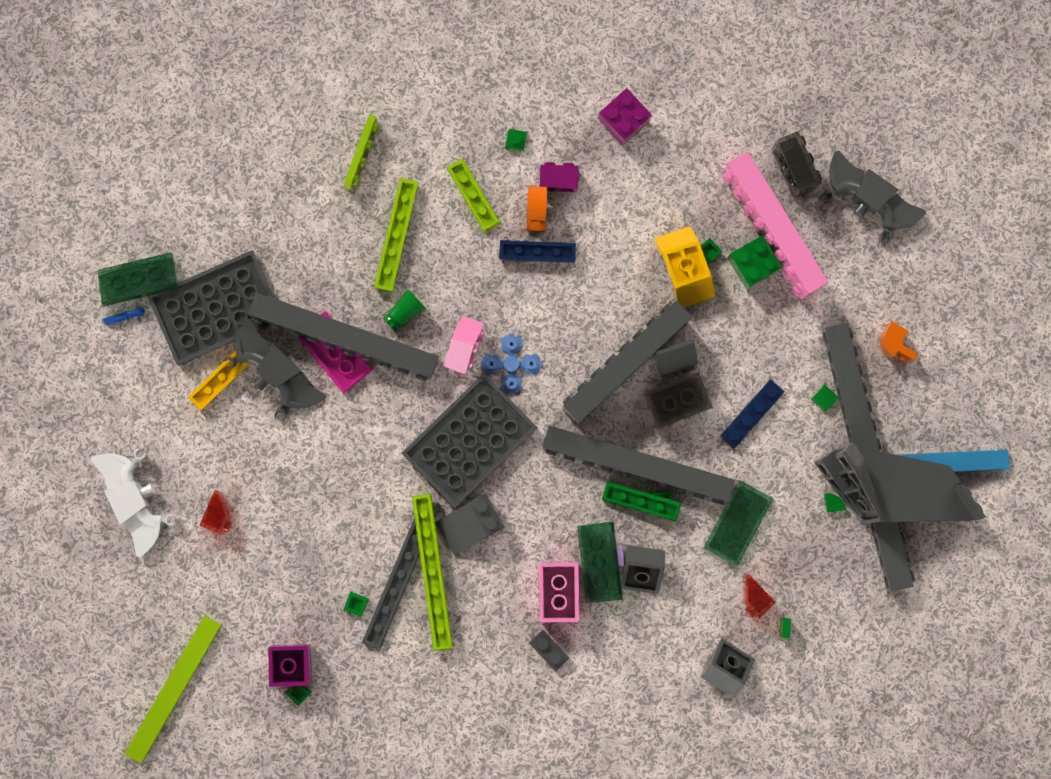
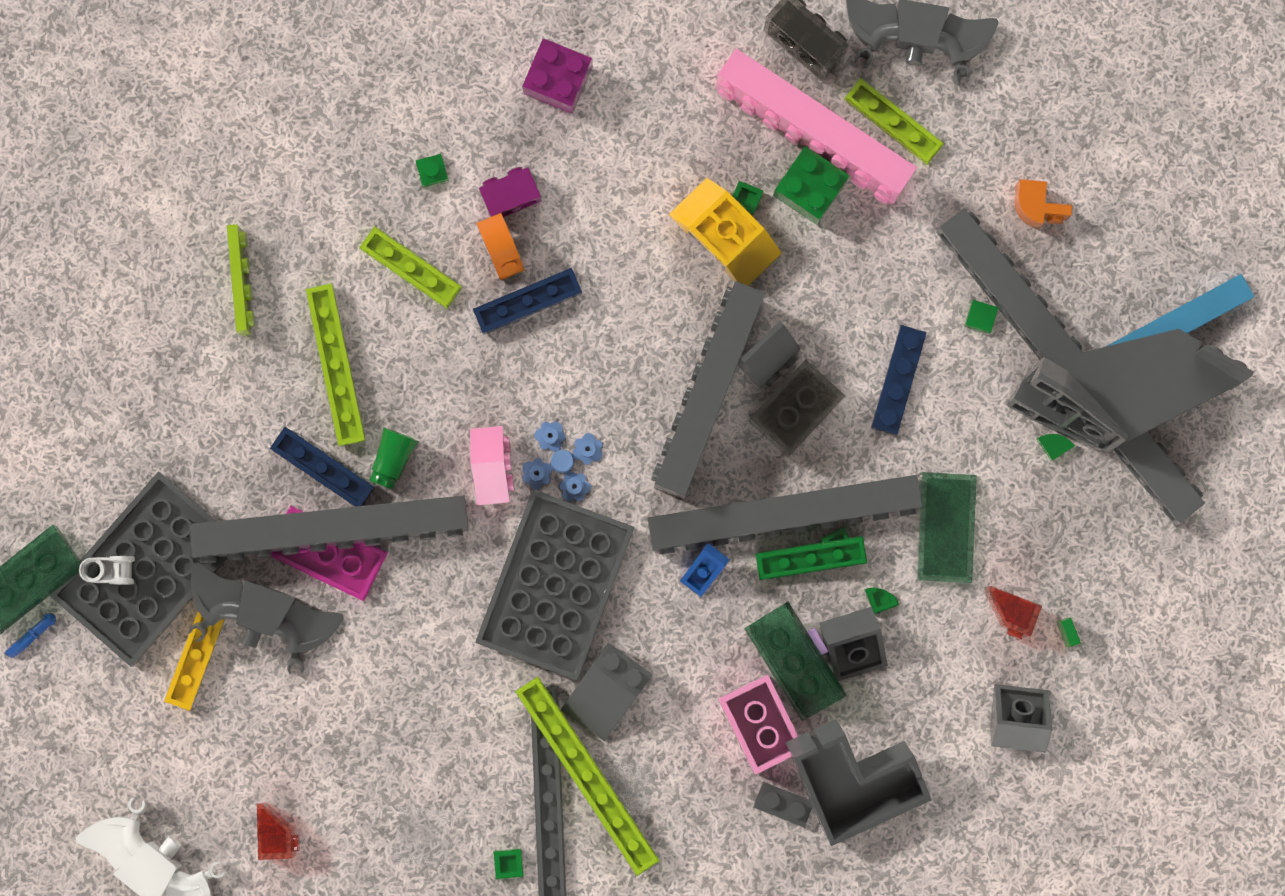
camera: 25 degrees left, 0 degrees up
(194, 299) = (112, 570): none -> white piece
(357, 296) = (322, 467): none -> dark blue plate
(569, 476) = (704, 570): none -> blue slope
(600, 667) = (851, 793): none -> dark grey piece
(673, 549) = (880, 599): none -> green tile
(827, 246) = (893, 121): none -> lime tile

